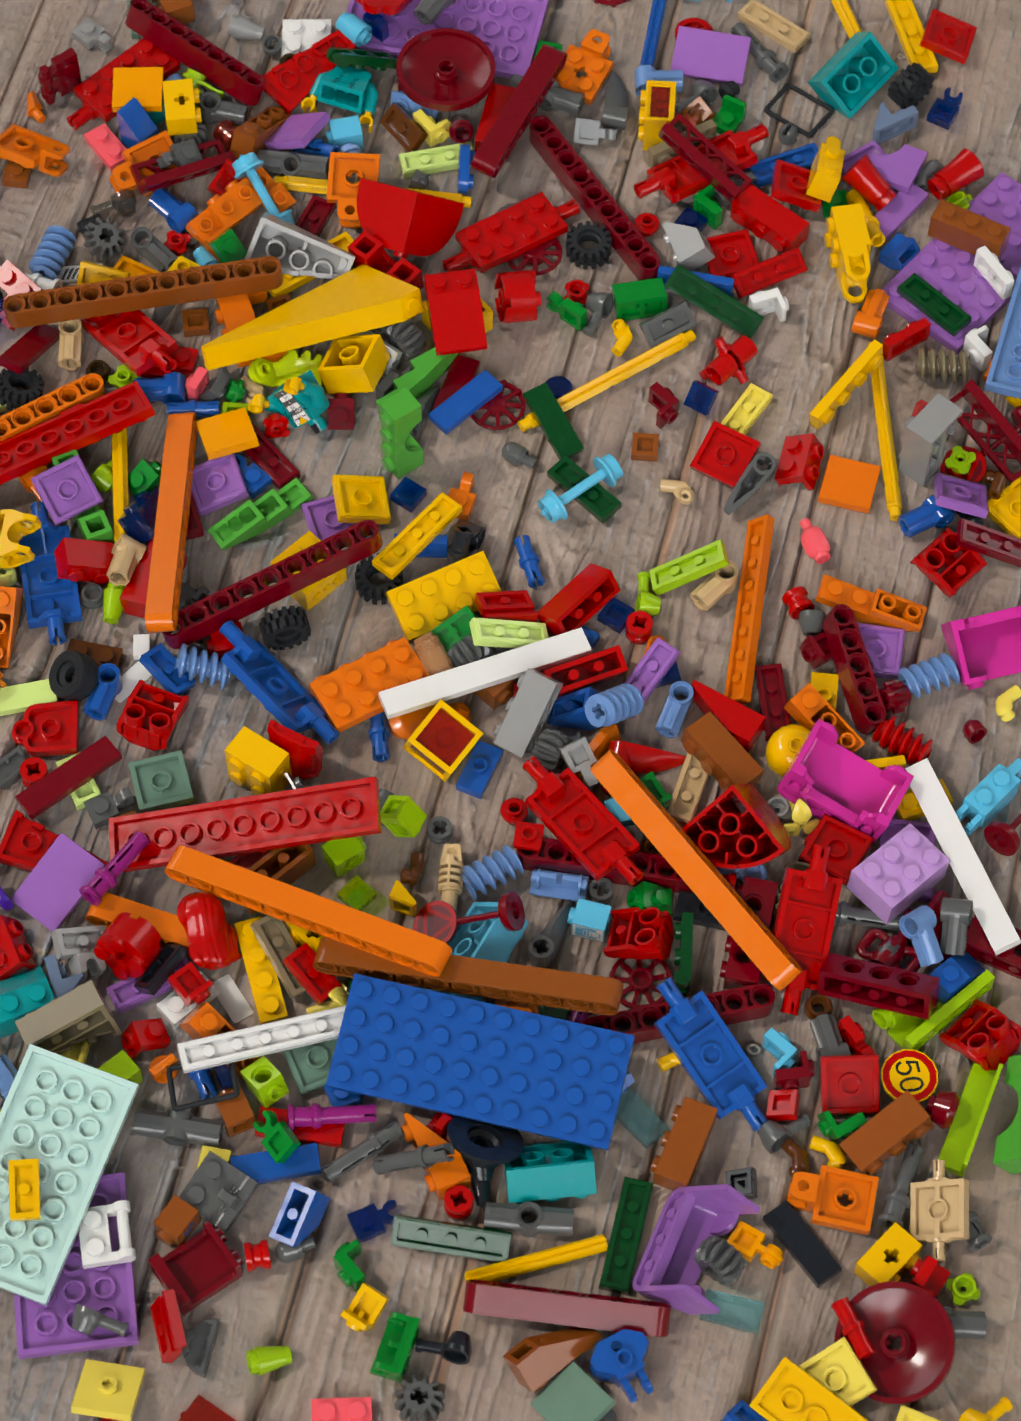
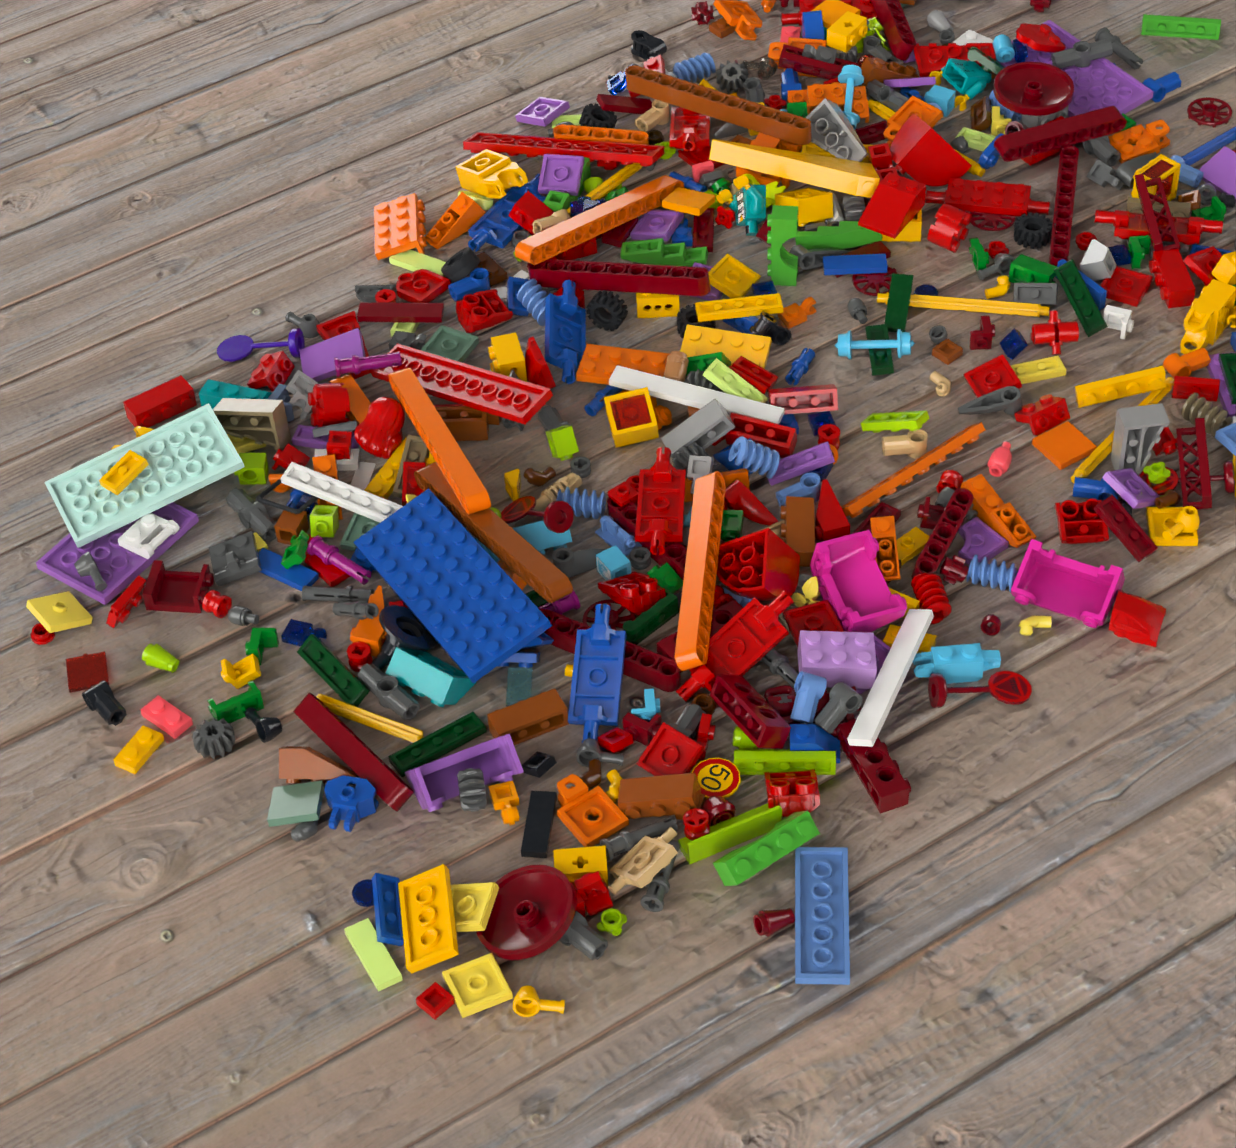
camera: 45 degrees right, 15 degrees down
(166, 389) = (678, 163): blue piece -> none
(176, 1222) = (193, 556): dark orange brick -> none
(200, 1345) = (136, 628): dark grey tile -> none
(299, 1214) = (262, 596): blue slope -> none
(344, 854) = (509, 441): lime brick -> none
(356, 894) = (491, 467): clear neon green plate -> none
(479, 769) = (640, 452): blue plate -> none
(616, 433) = (938, 334): none -> dark grey hinge
(645, 600) = (849, 426): lime bar -> none
(735, 1311) = (452, 828): clear light blue tile -> none
(768, 272) = (1142, 305): red tile -> none
(846, 1127) = (629, 770): green bracket -> none
(853, 1328) = (506, 881): red pin -> none
(942, 1130) = (696, 823): none -> red wheel

